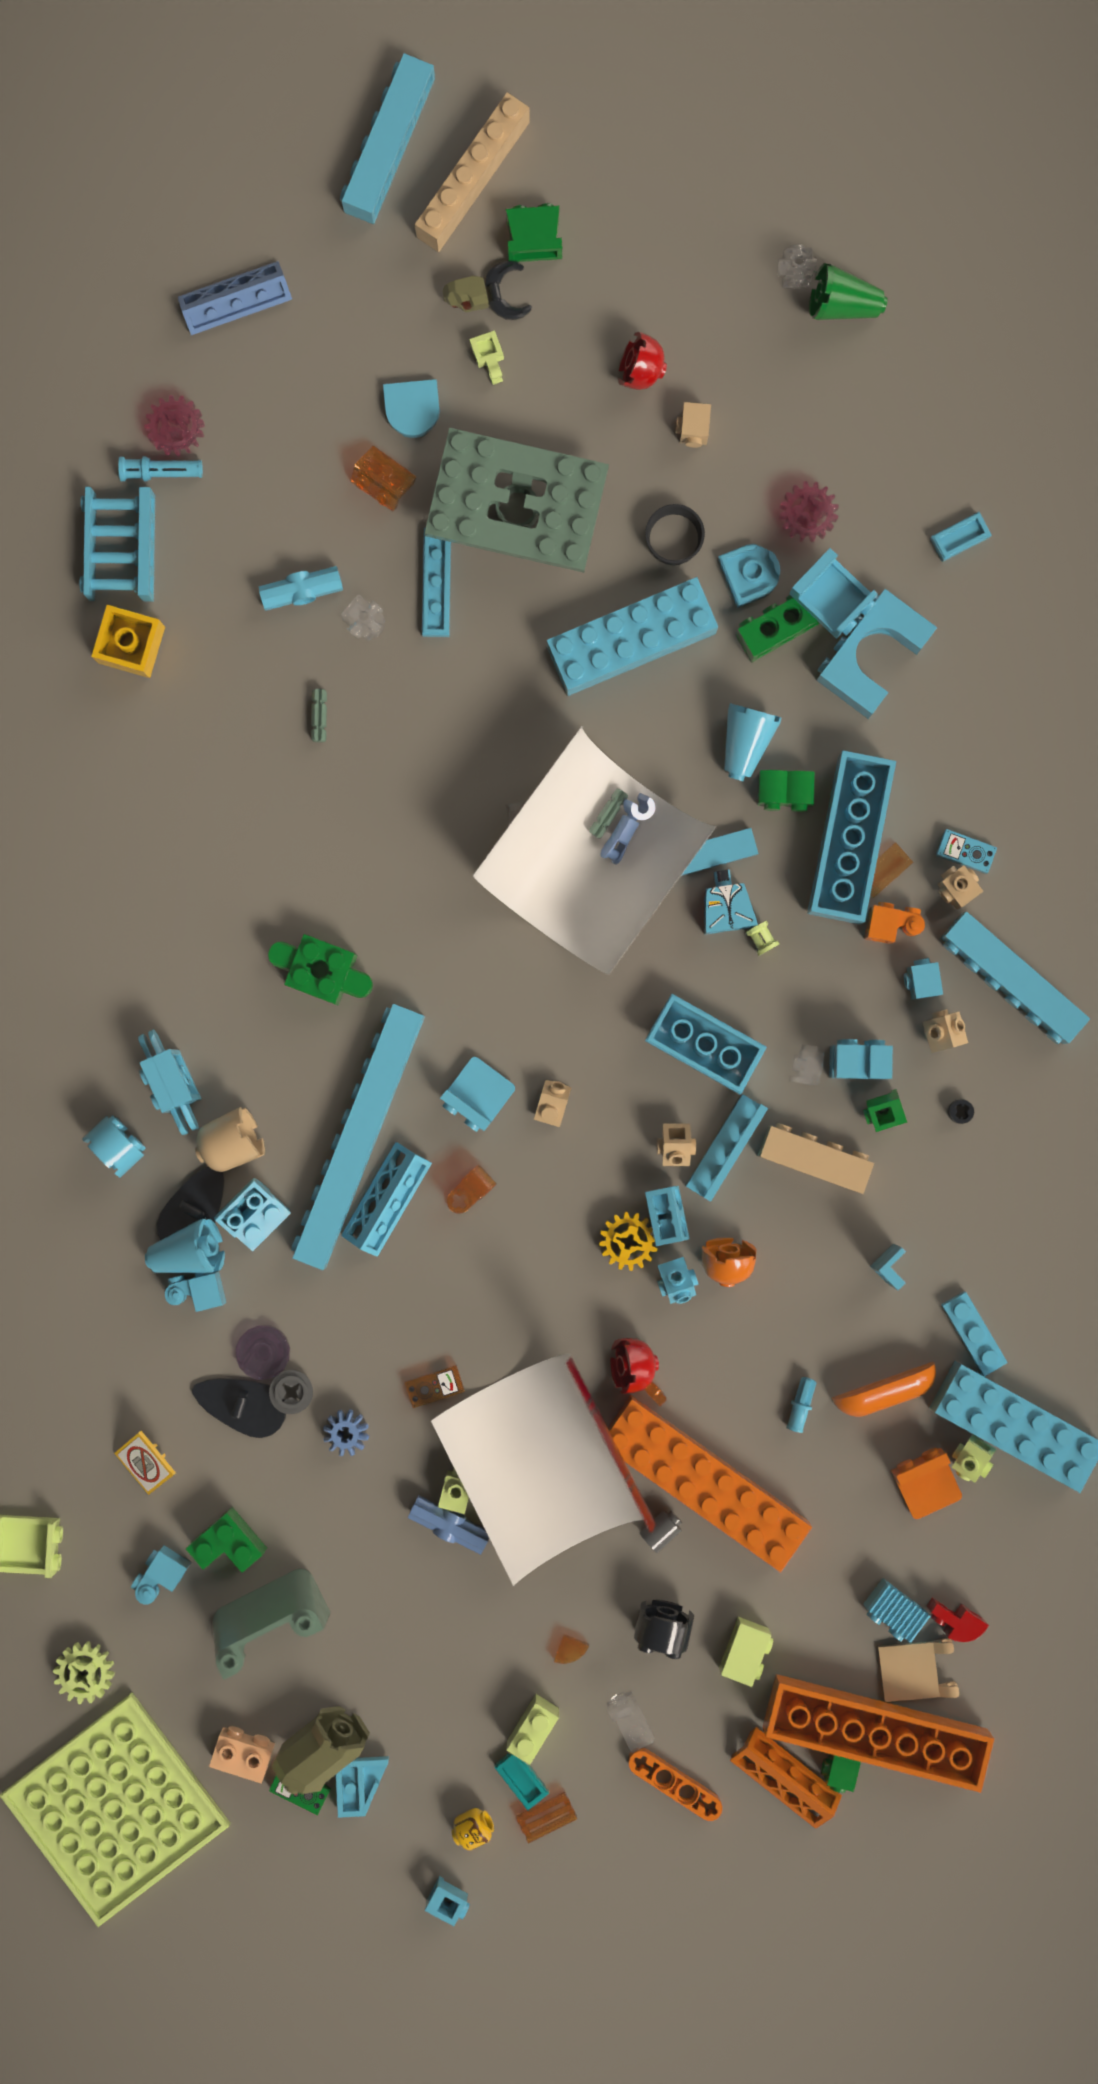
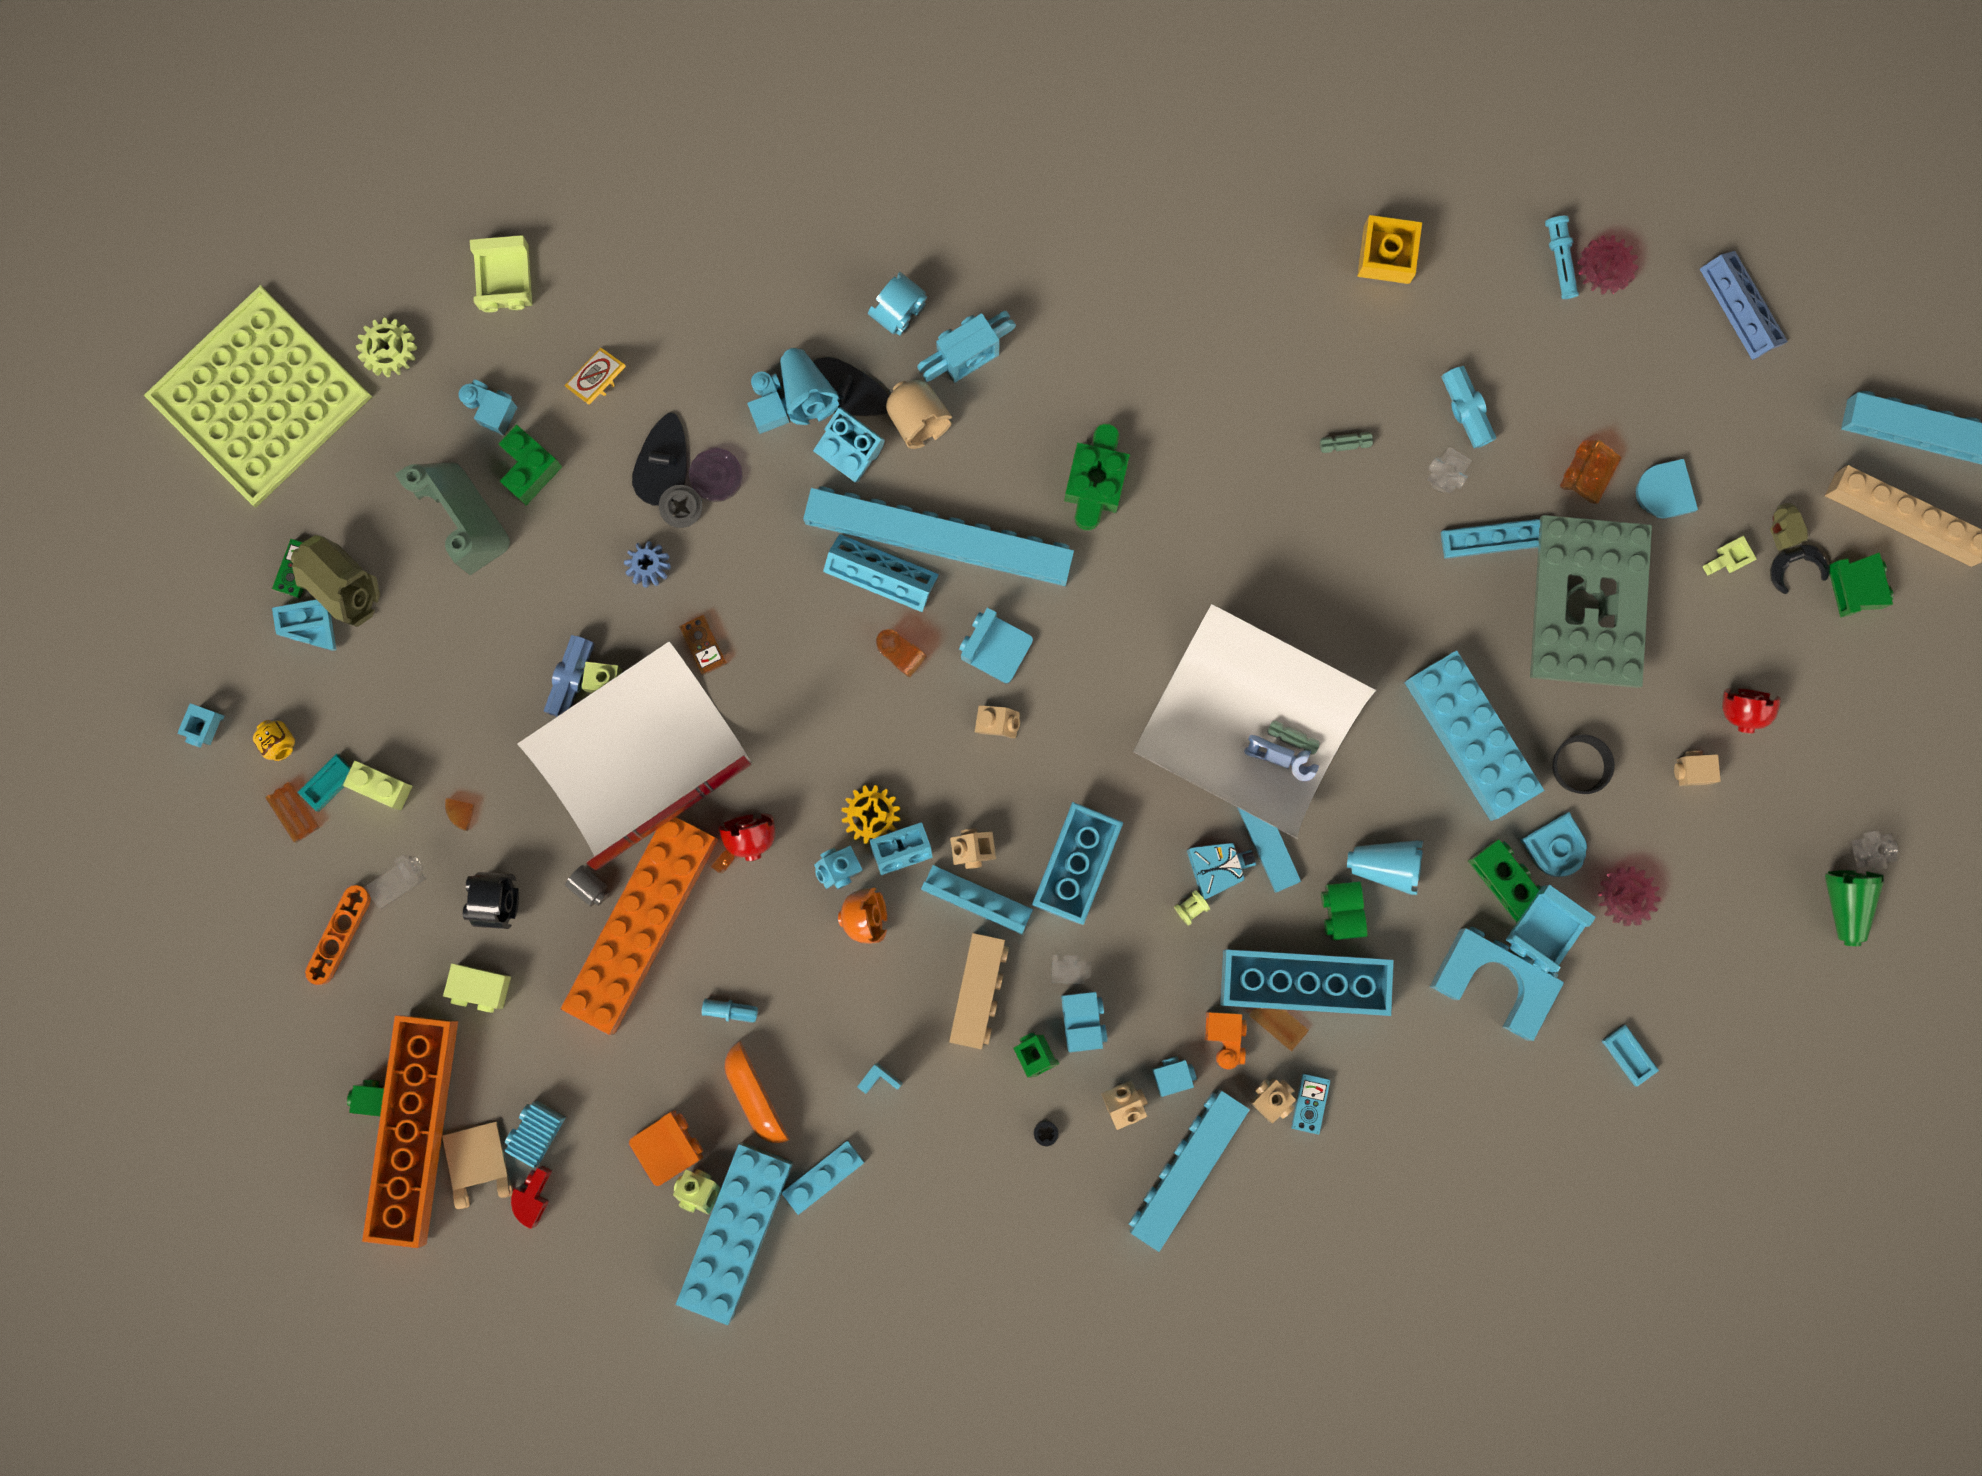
camera: 80 degrees right, 5 degrees down
(142, 531) = (1473, 252): medium azure fence -> none
(242, 1754) = (323, 508): light nougat brick -> none
(790, 1777) = (357, 1048): orange fence -> none

